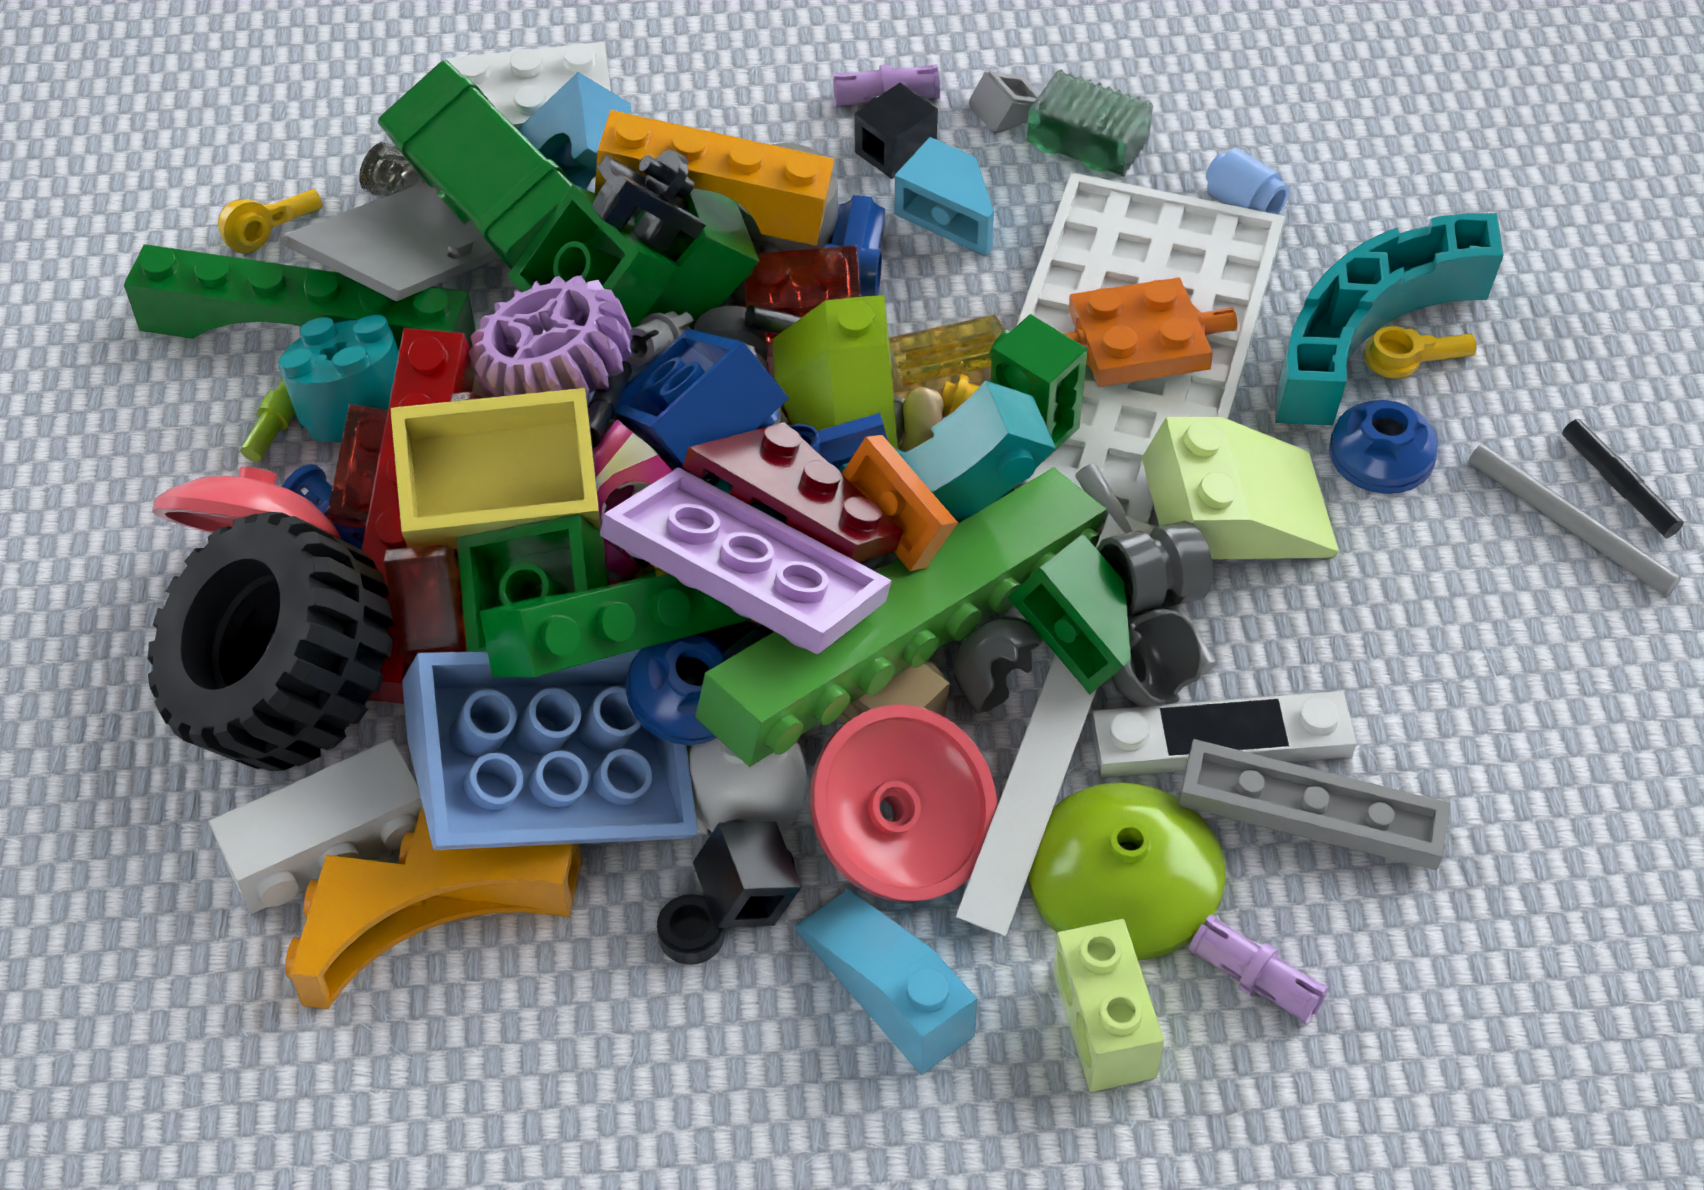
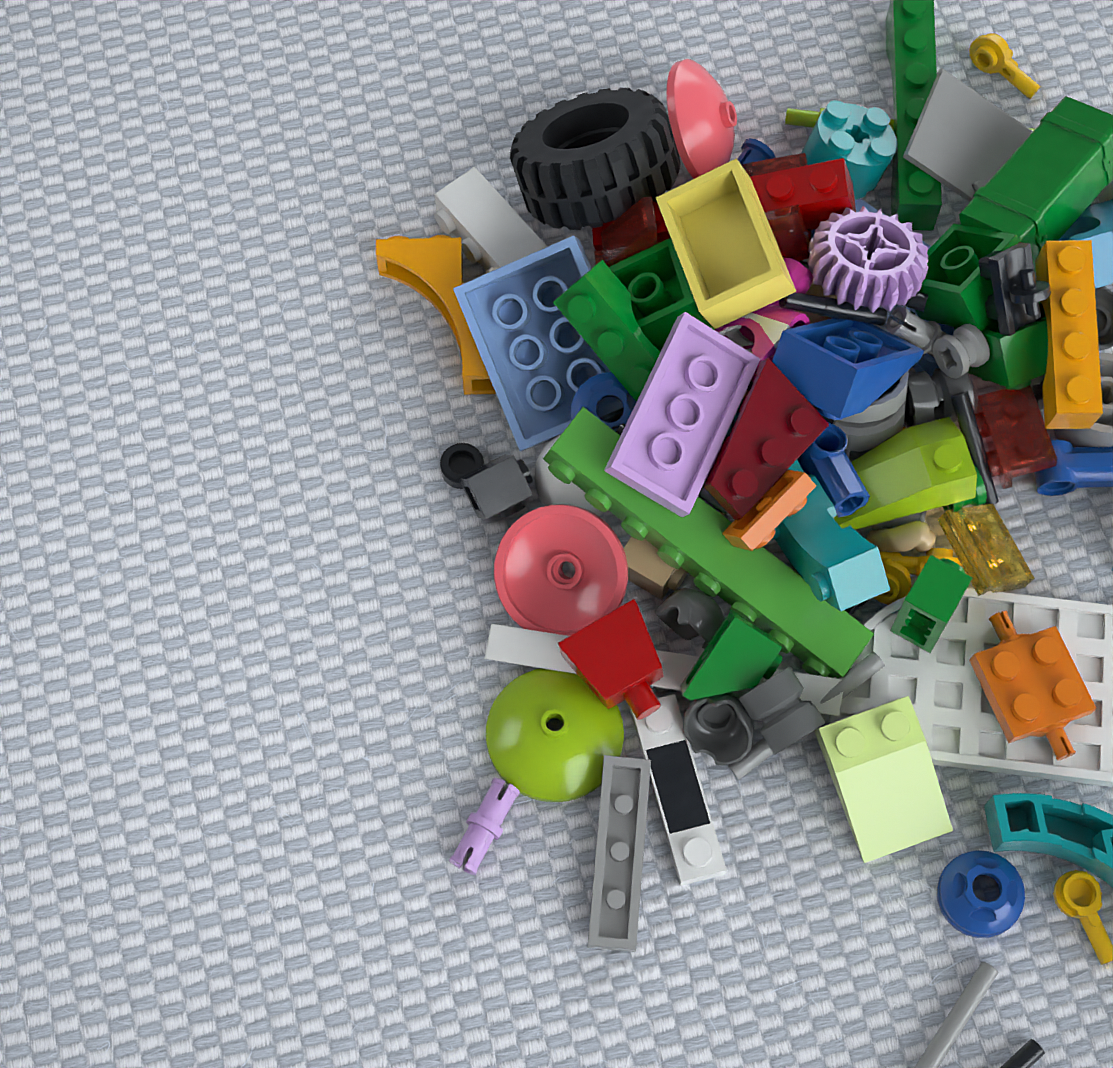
camera: 80 degrees right, 15 degrees up
(695, 296) = (960, 351): none -> light grey wheel
(893, 978) = (438, 589): medium azure slope -> none
(1049, 747) = (617, 659): none -> red torso
(1107, 1005) = (434, 724): yellowish green brick -> none

